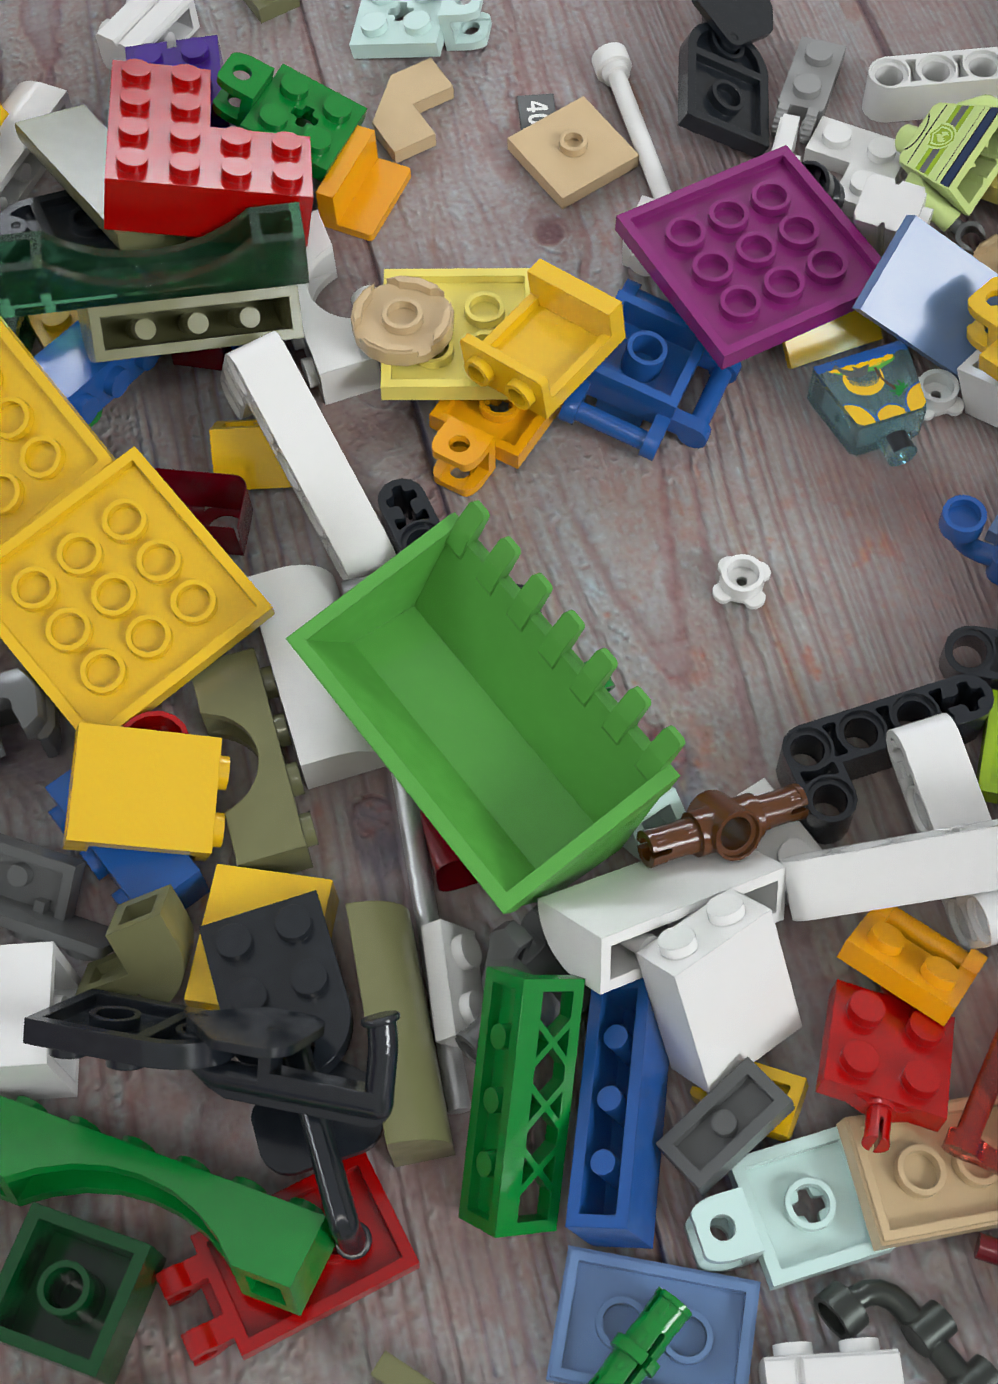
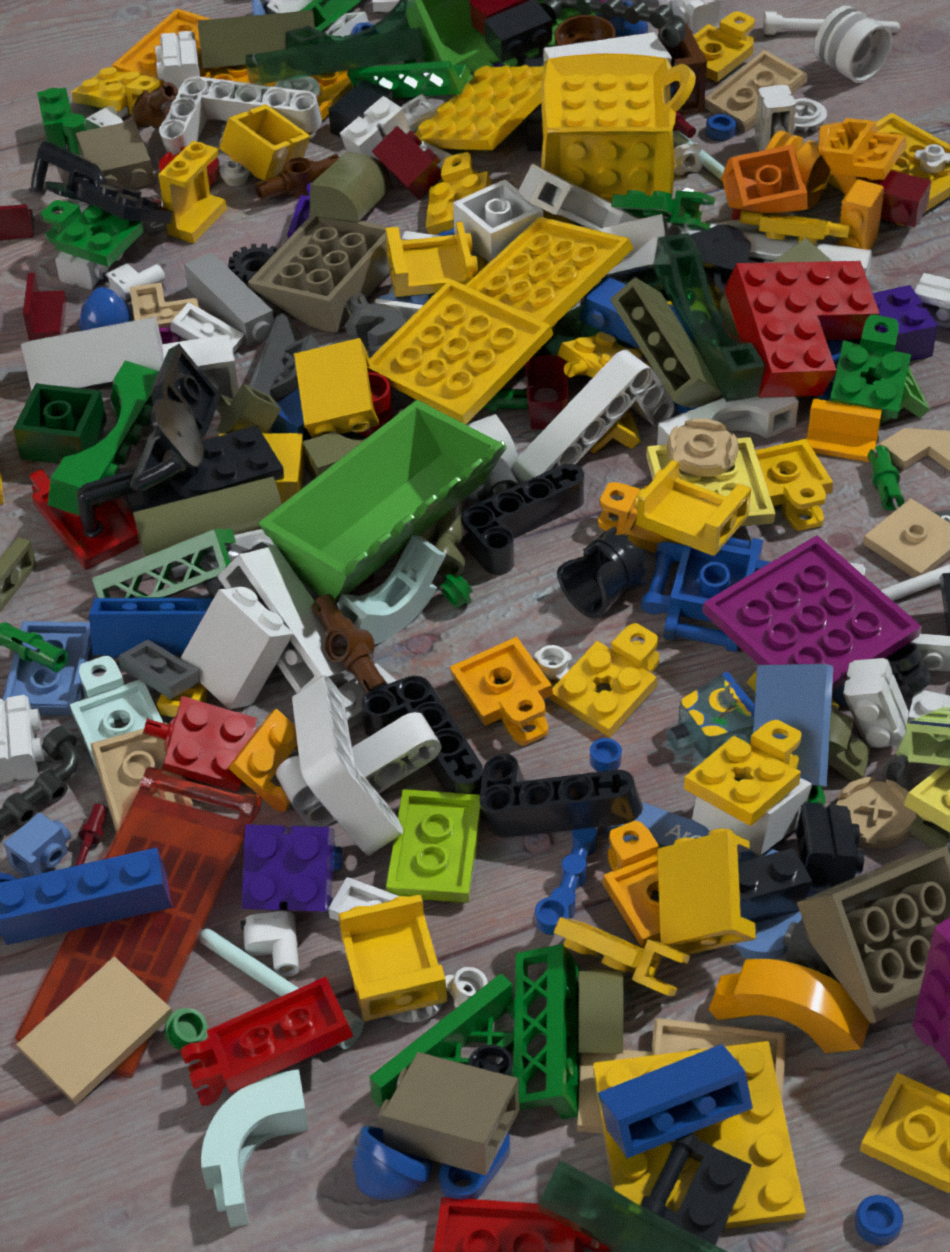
camera: 80 degrees right, 15 degrees down
(161, 421) = (592, 353): none -> yellow plate
(452, 238) = (803, 486): none -> yellow plate
(457, 159) = (885, 478): none -> green pin
(609, 484) = (606, 571): none -> black hat
(764, 499) = (627, 670): none -> yellow plate
(820, 634) = (515, 702): none -> light orange plate

